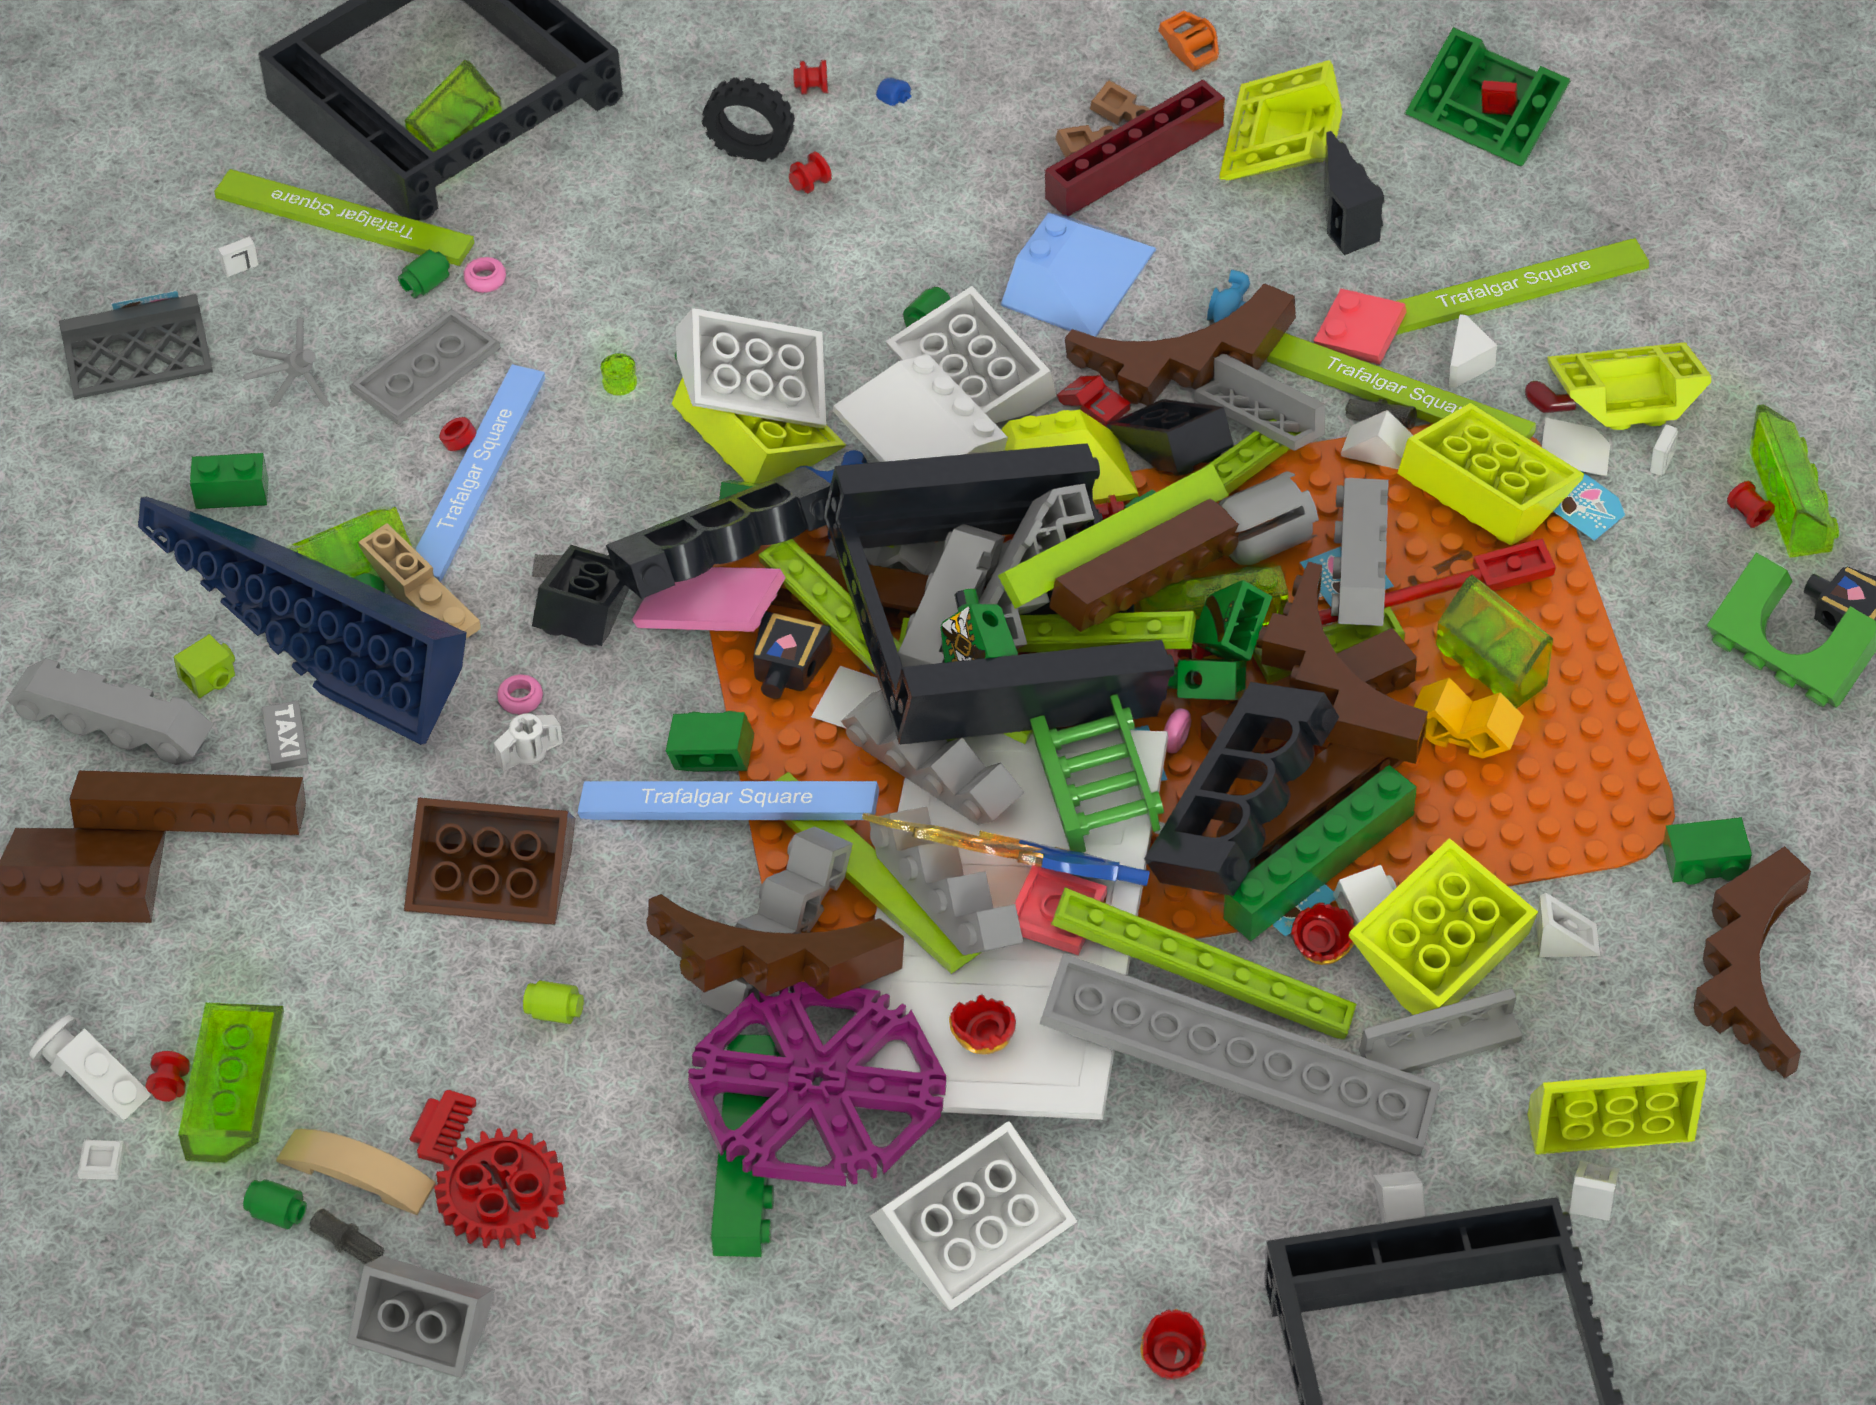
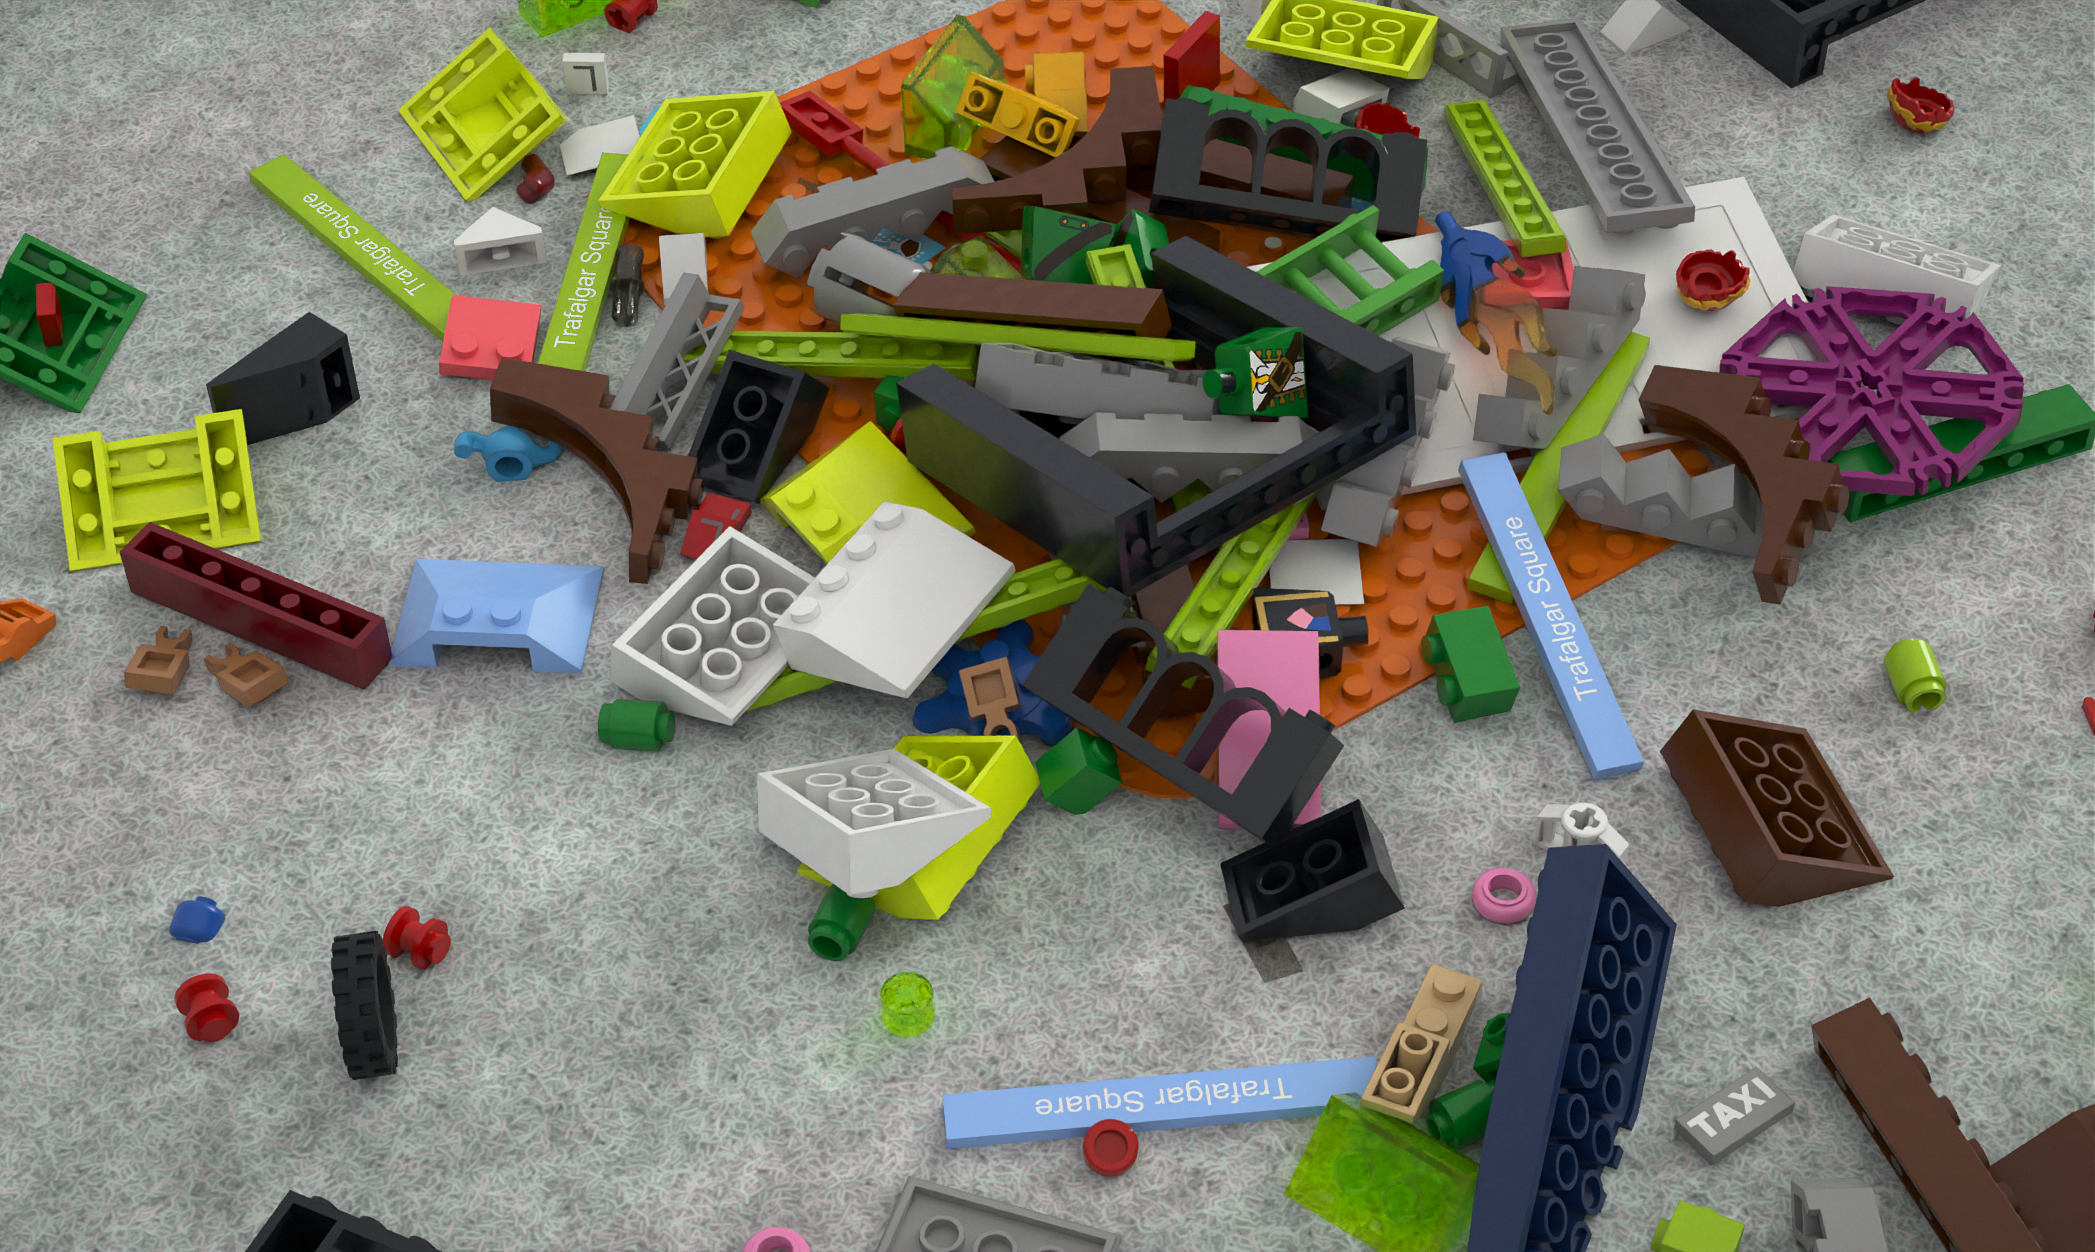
camera: 115 degrees left, 5 degrees down
(822, 462) = (991, 694): none -> medium nougat plate
(1418, 659) = (1018, 114): none -> yellow slope
(1445, 803) = (1194, 58): none -> red tile

